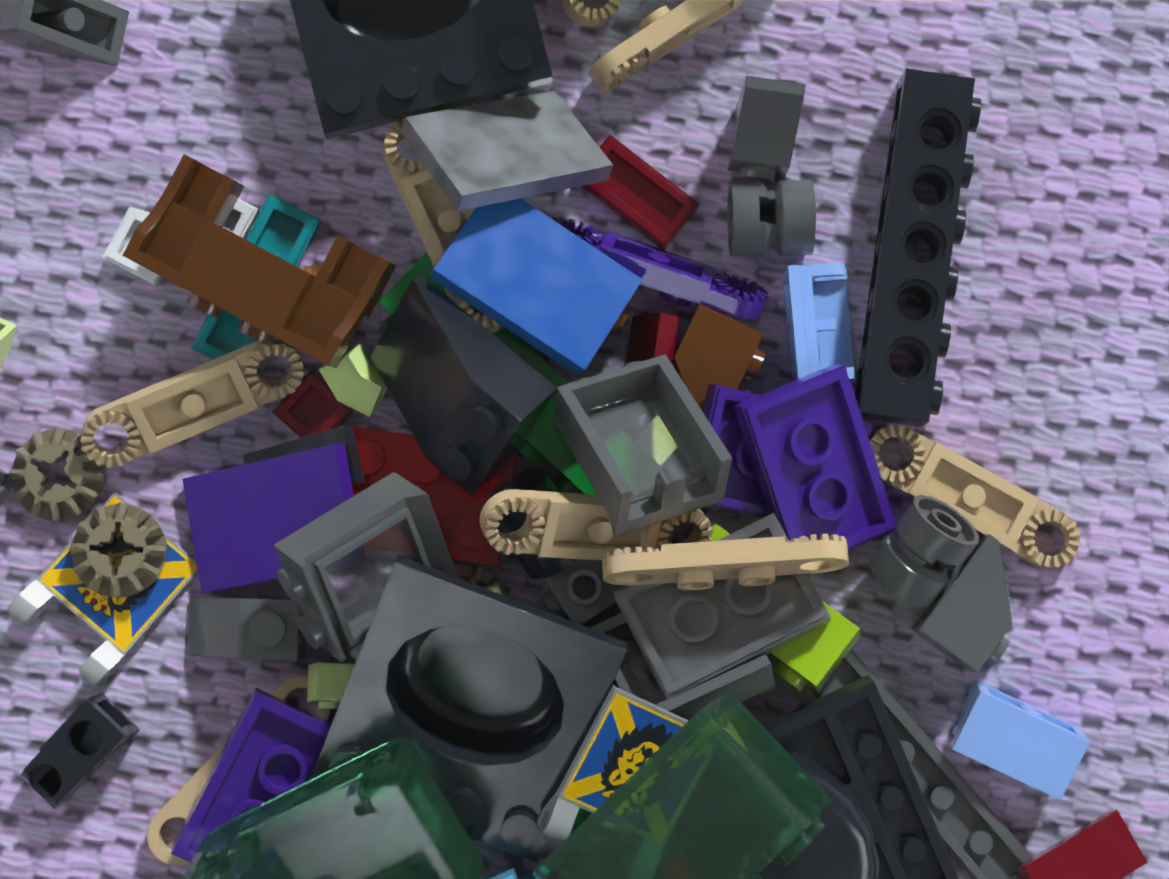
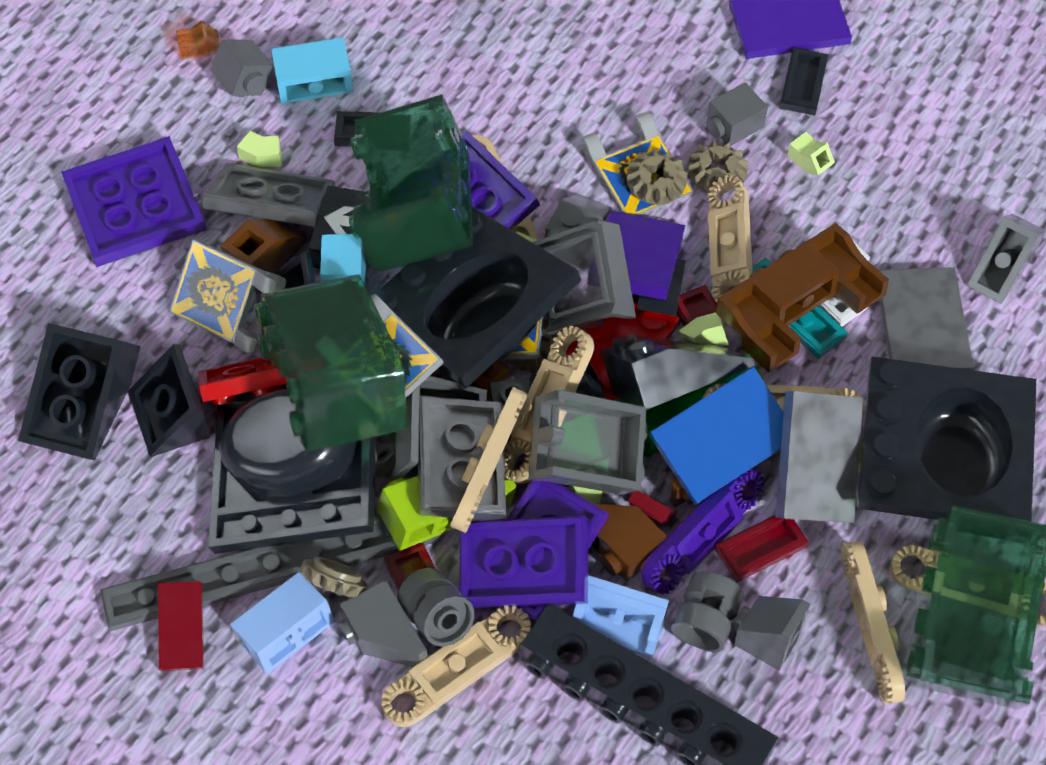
camera: 120 degrees right, 25 degrees down
(78, 749) = (550, 121): black leg -> none
(204, 100) = (925, 317): none -> flat silver tile
(871, 612) = (407, 562): none -> dark red tile
(927, 695) = (333, 576): none -> dark tan gear

